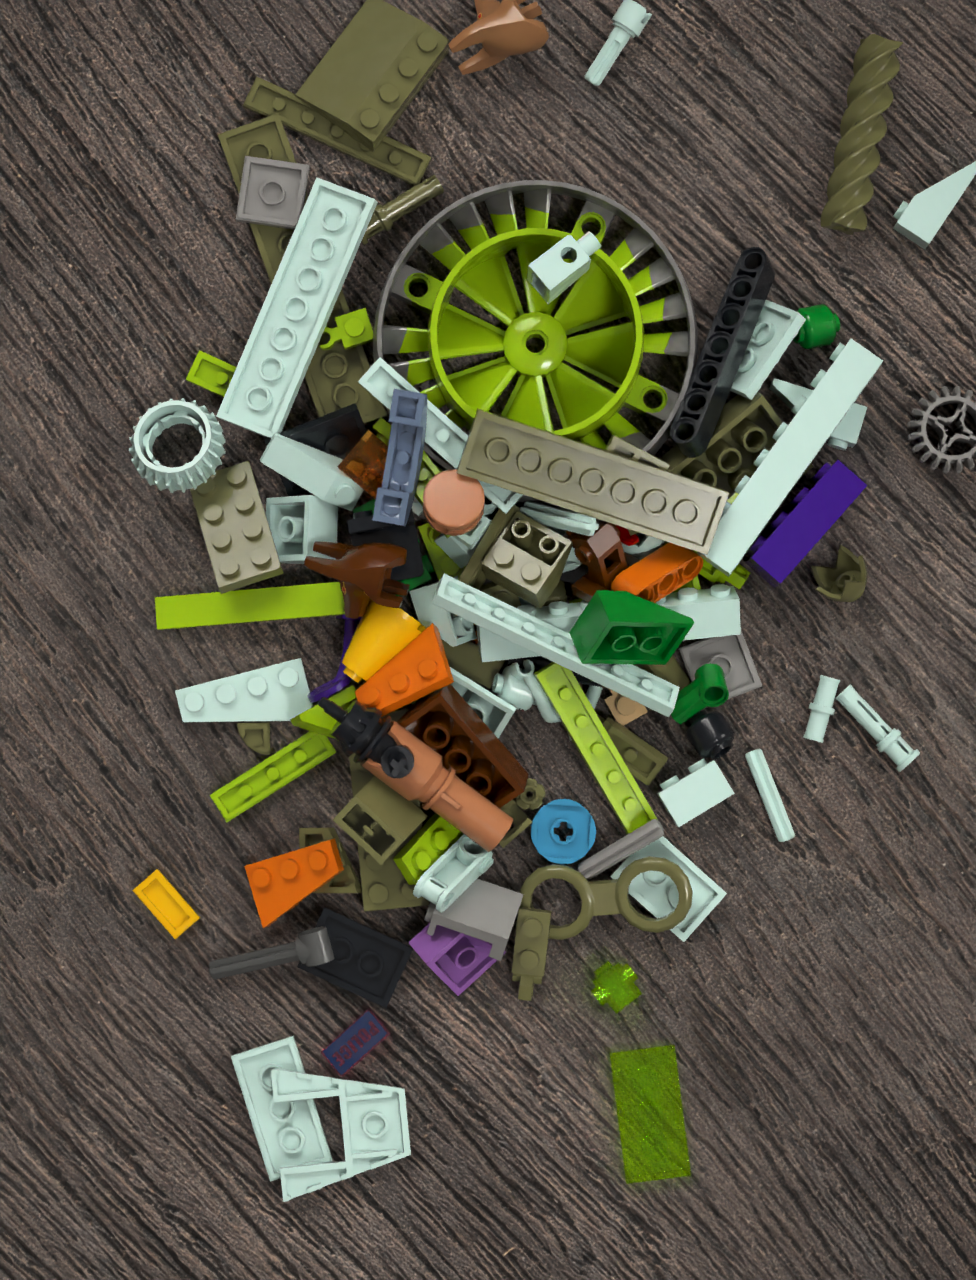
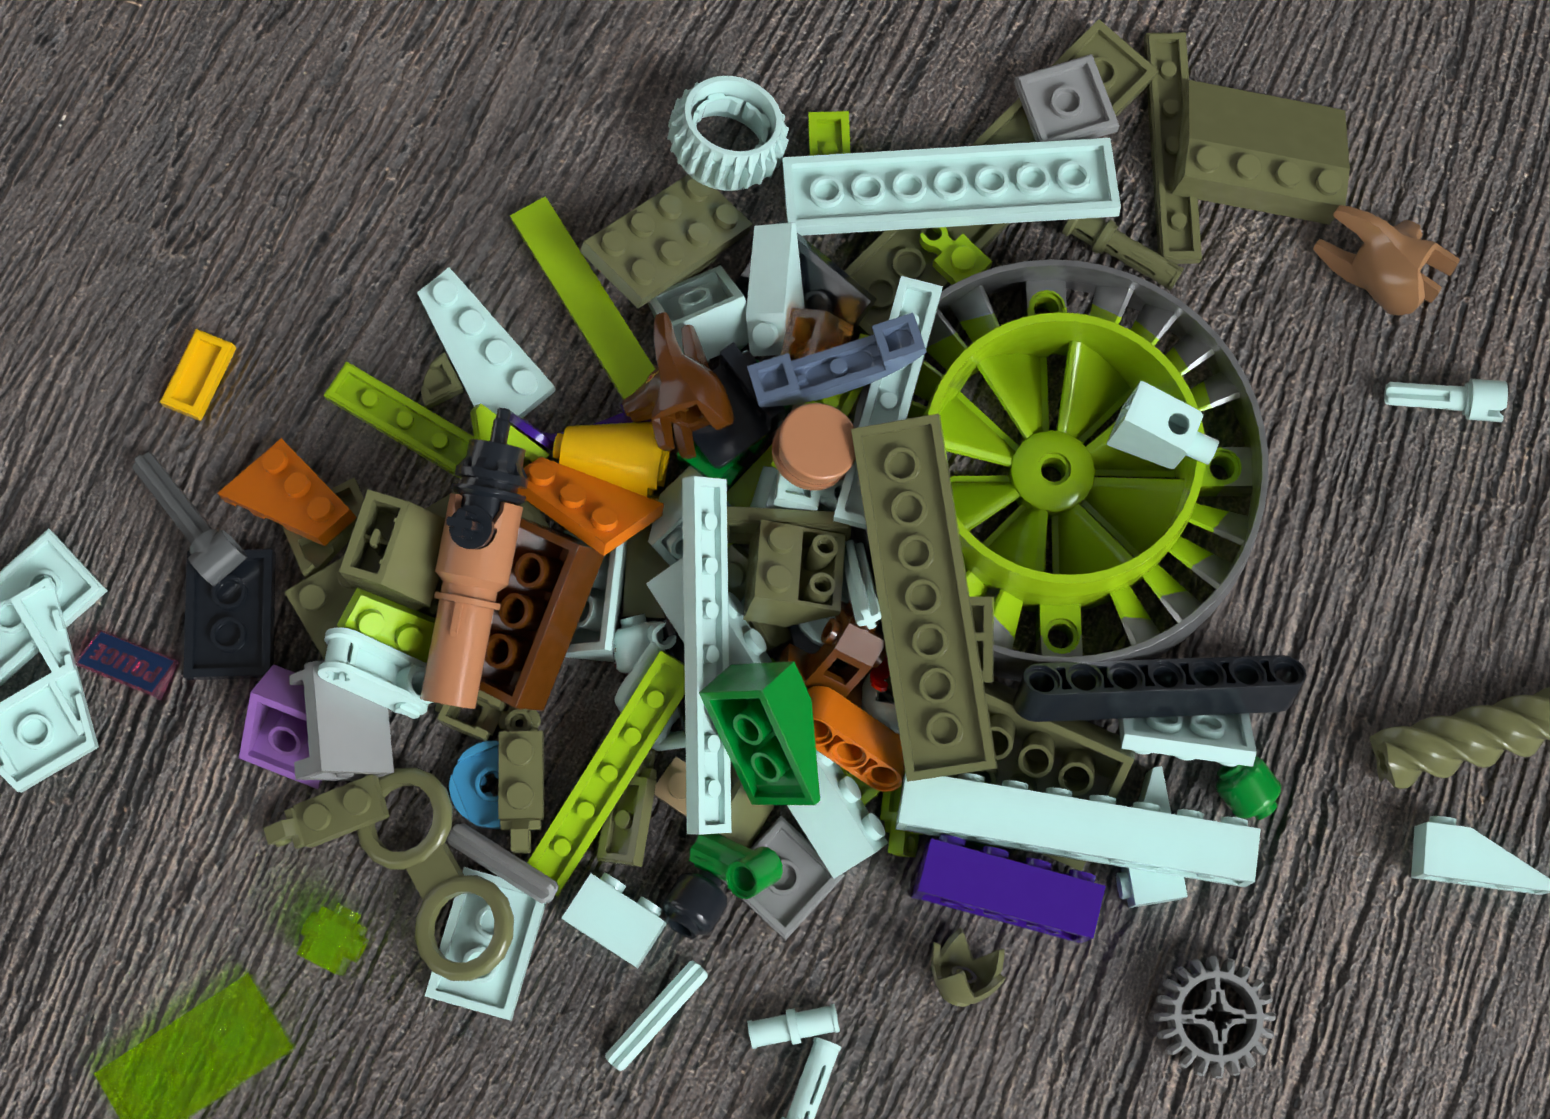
camera: 60 degrees right, 10 degrees down
(575, 812) = (521, 786): none -> olive hinge

